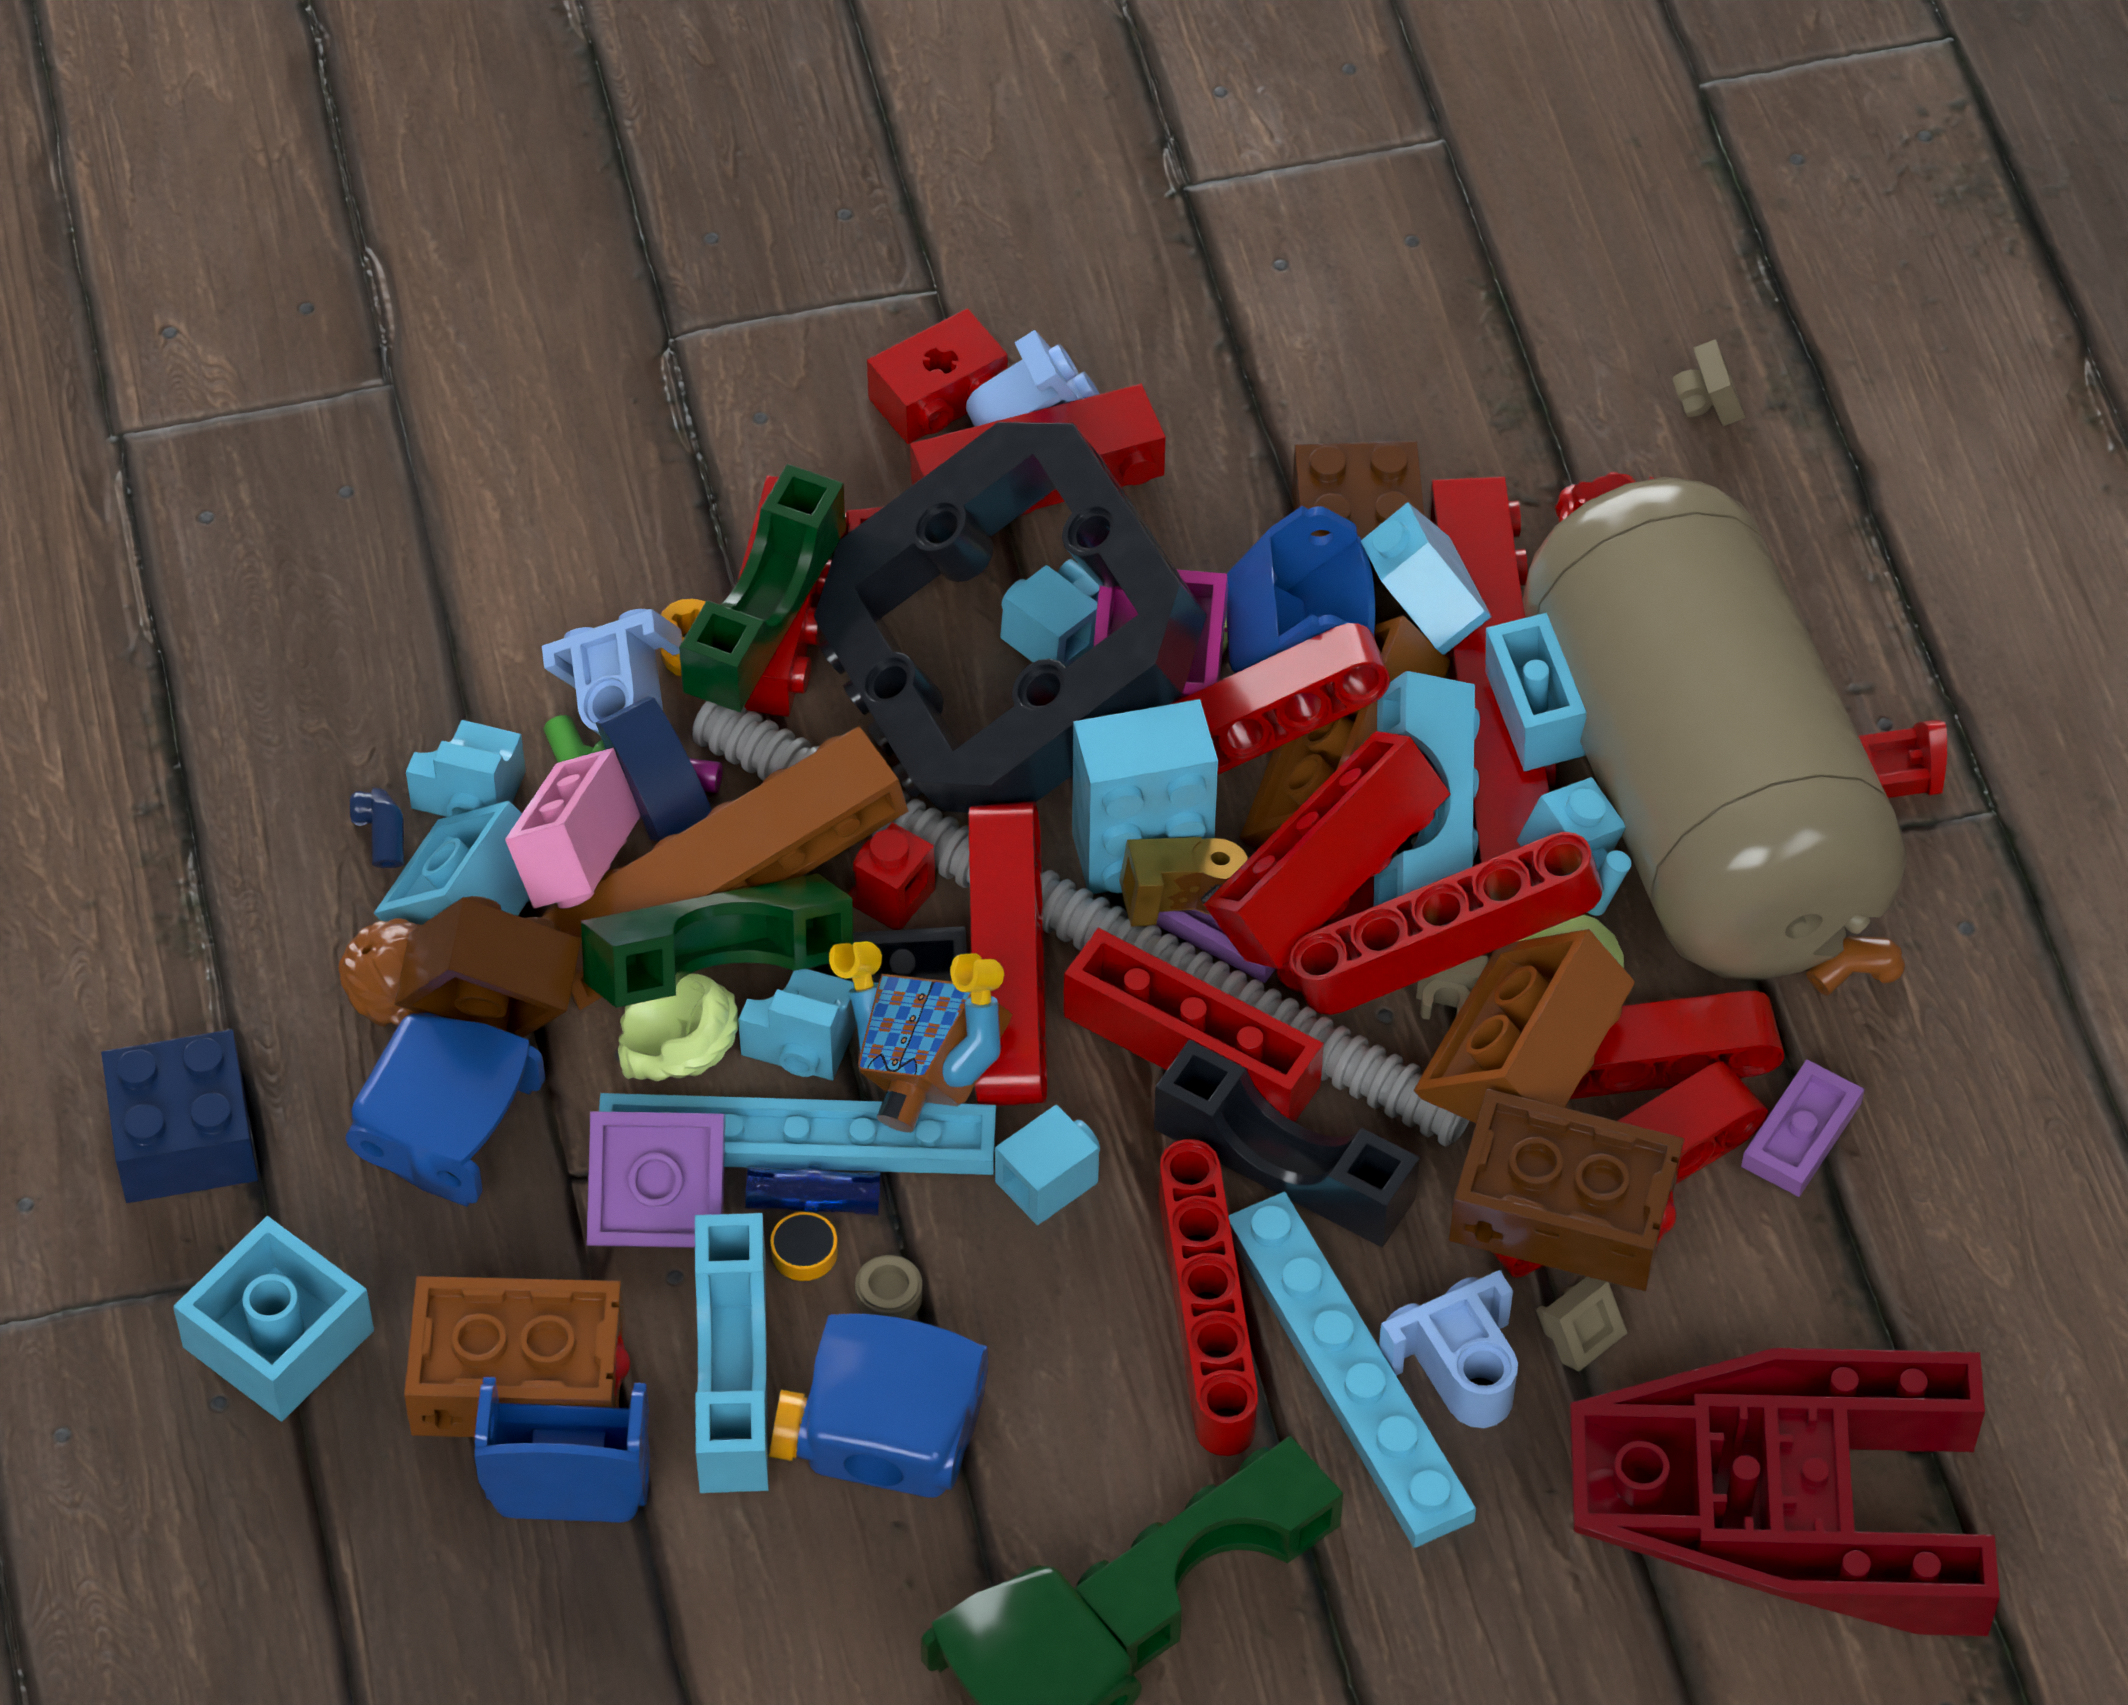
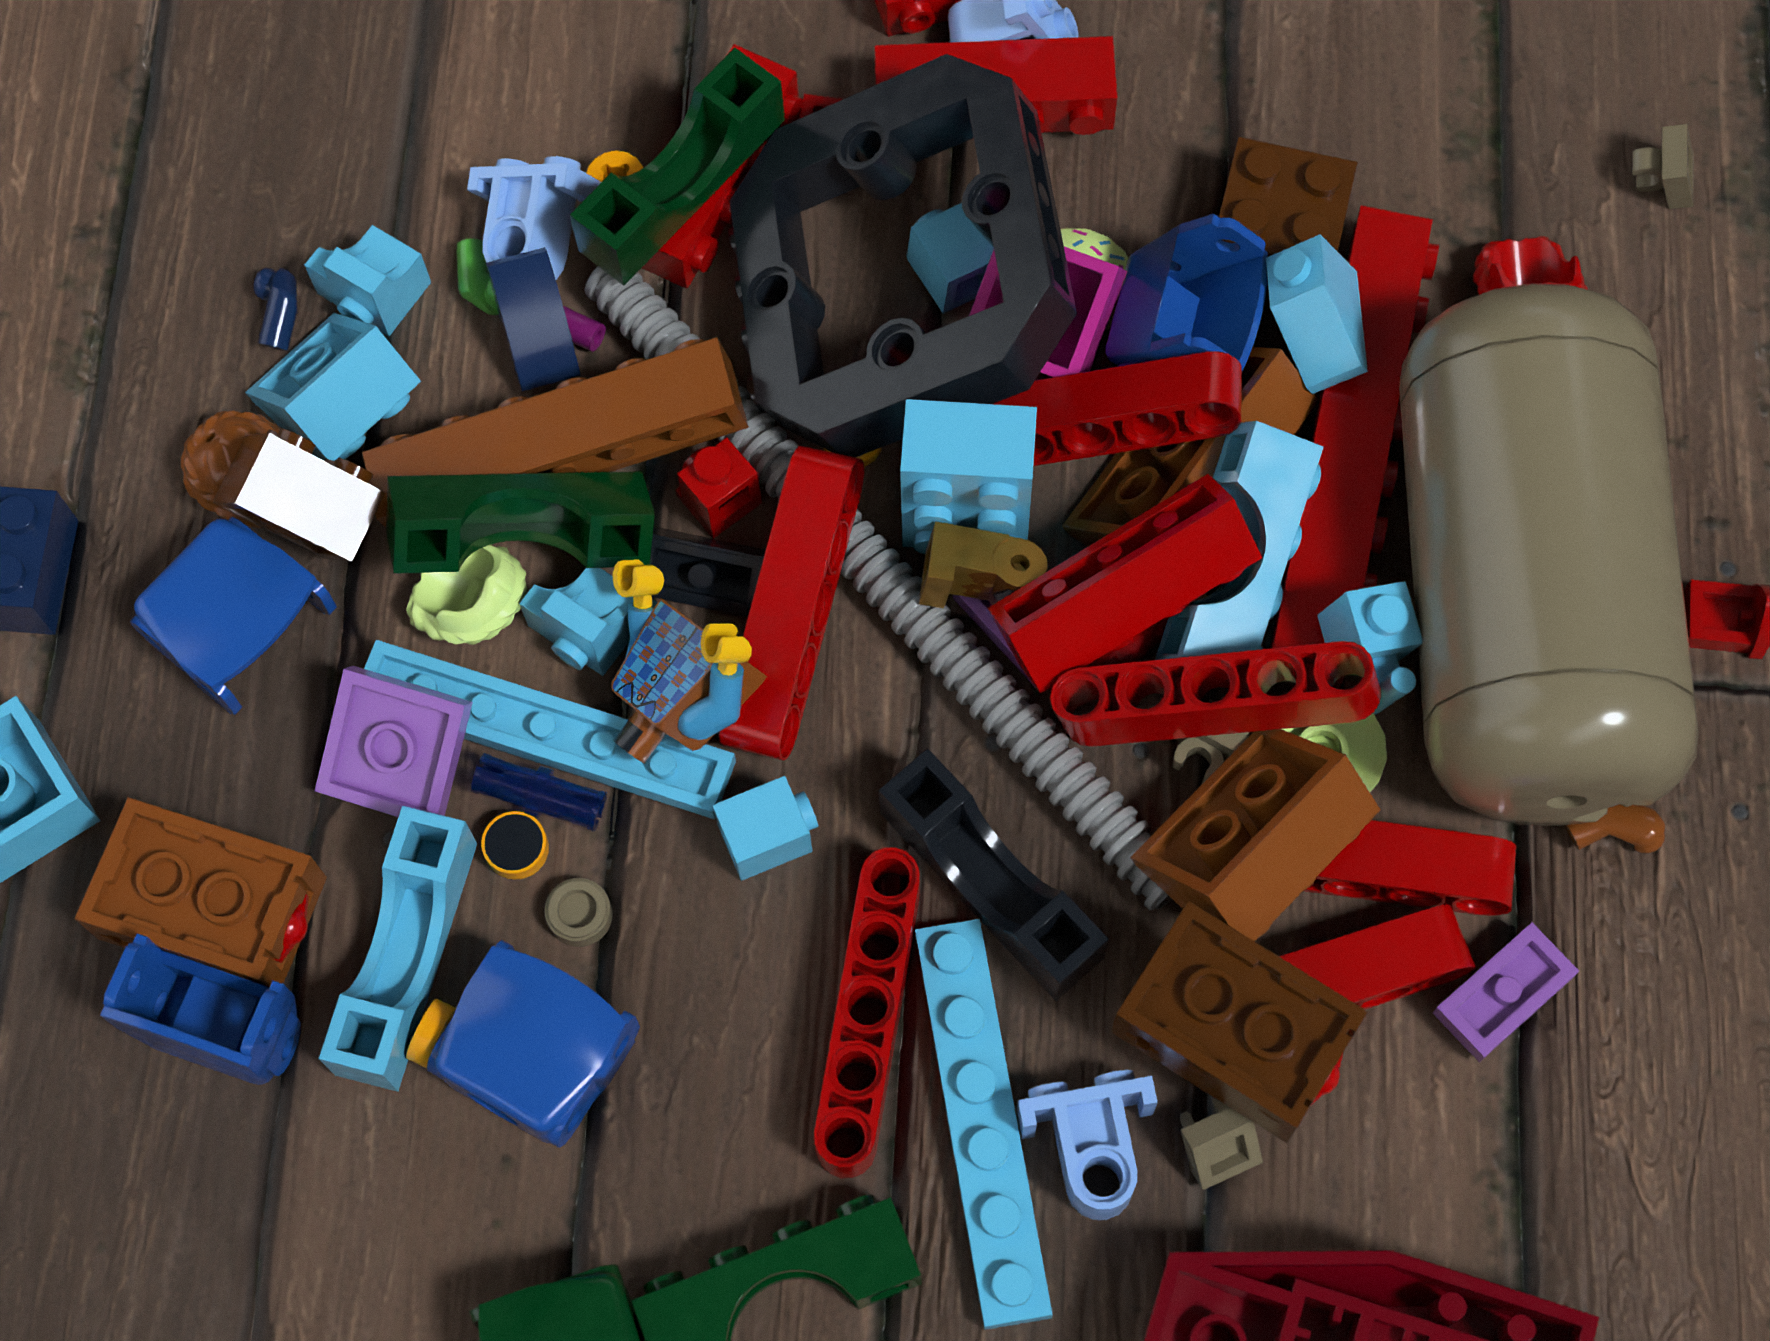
camera: 20 degrees right, 15 degrees up
(573, 829) = (426, 369): bright pink brick -> none
(1160, 1007) = (934, 713): red brick -> none
(1535, 691) = (1381, 468): medium azure brick -> none

